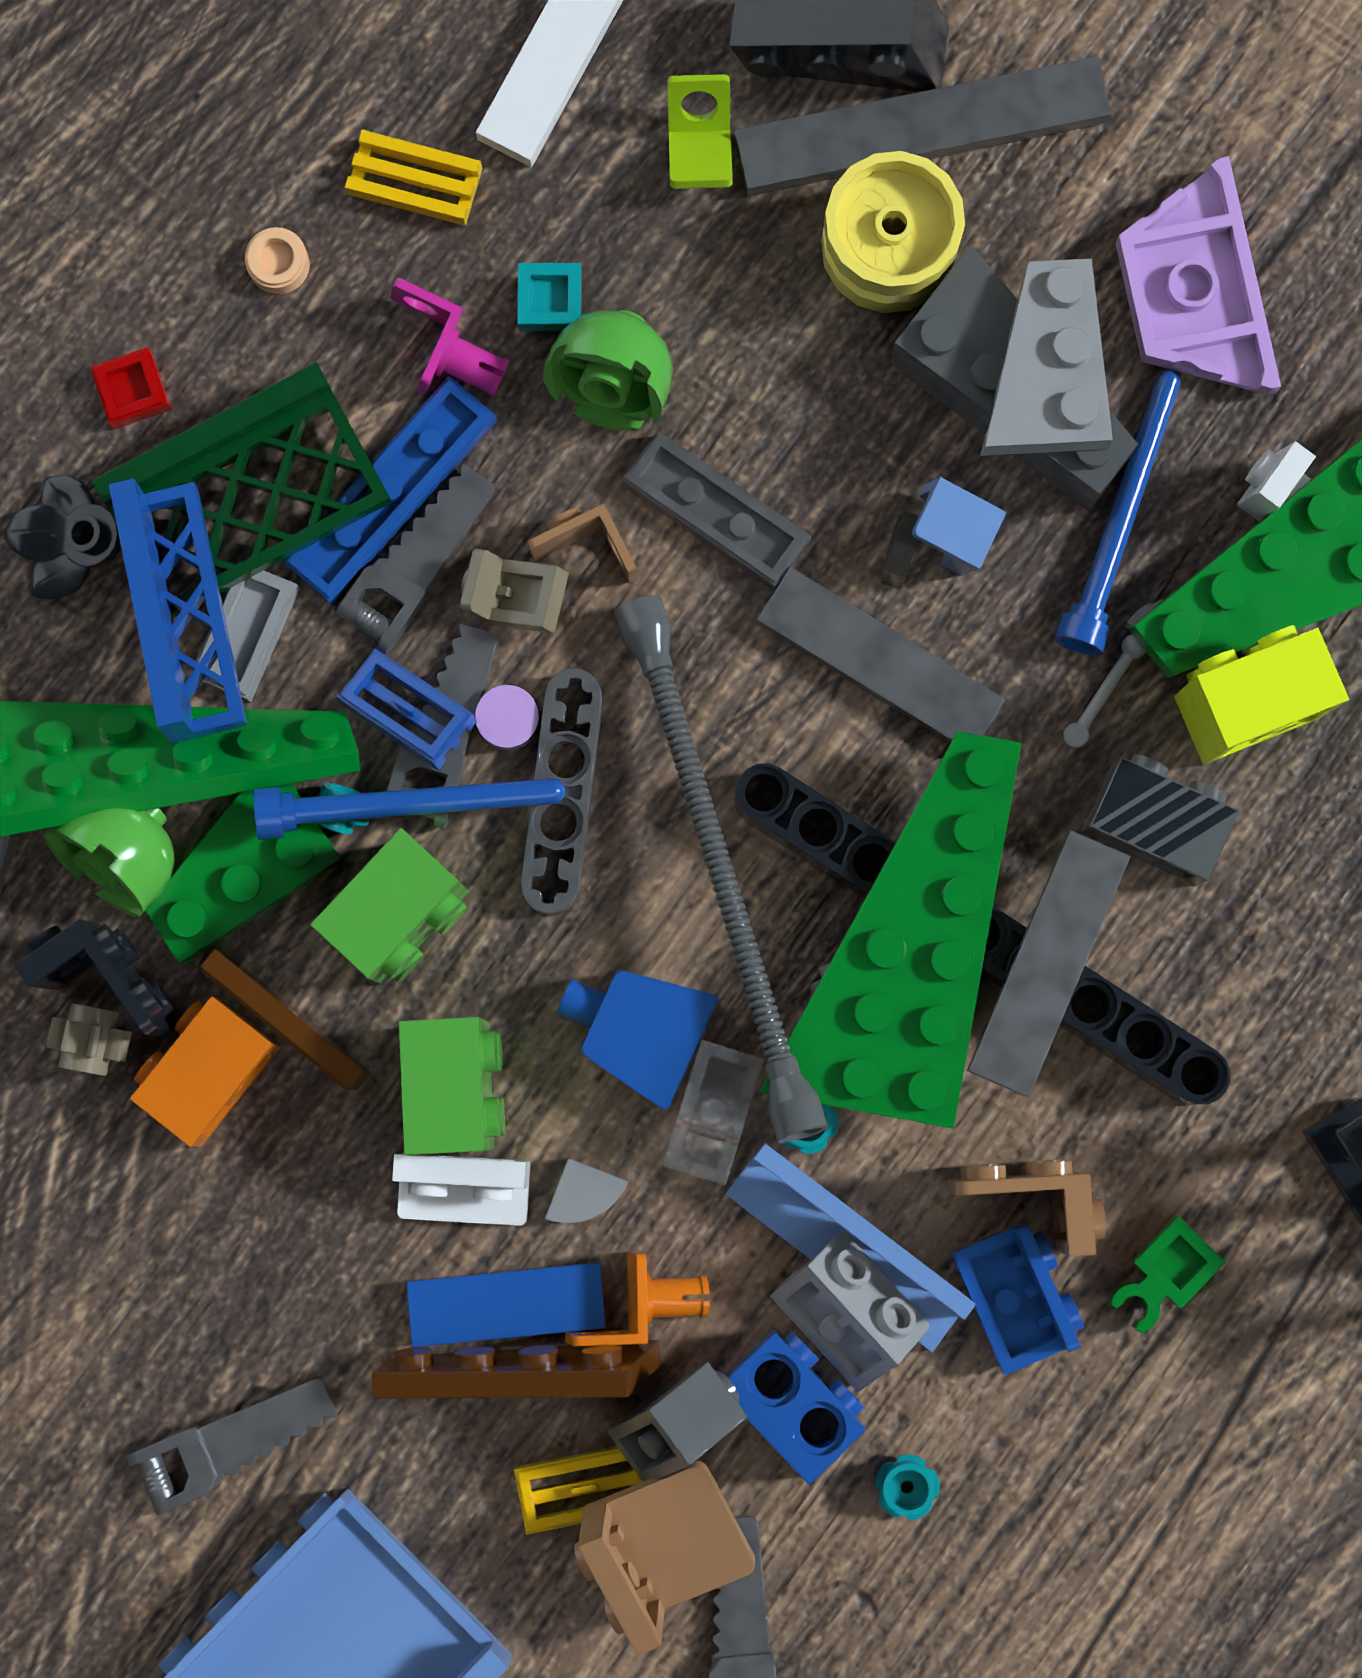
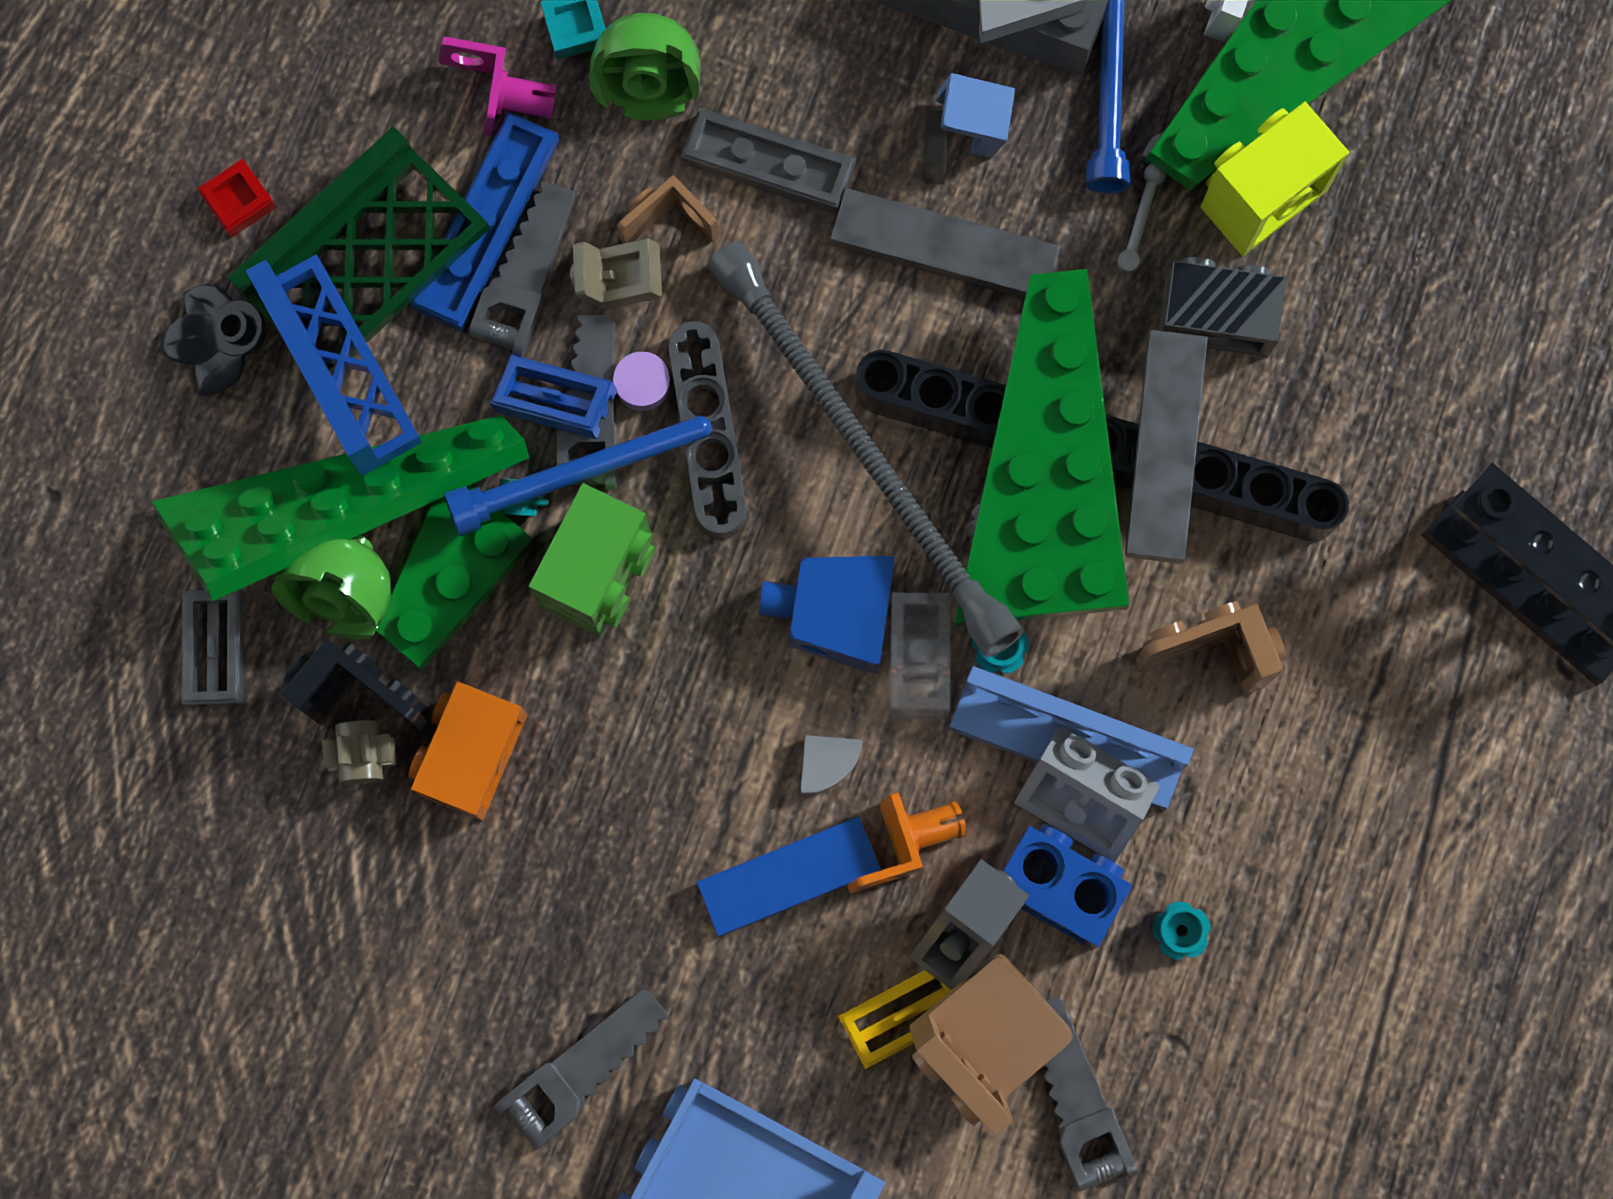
camera: 20 degrees left, 5 degrees down
(254, 621) = (402, 357): light grey tile -> none
(277, 260) = (332, 58): light nougat tile -> none
(285, 1020) = (526, 688): reddish brown tile -> none
(450, 1085) = (685, 698): bright green brick -> none
(462, 1189) = (721, 785): white bracket -> none
(517, 1372) = (832, 919): reddish brown wing -> none
(1017, 1297) = (1228, 738): blue bracket -> none
(1172, 1266) = (1349, 678): green plate -> none

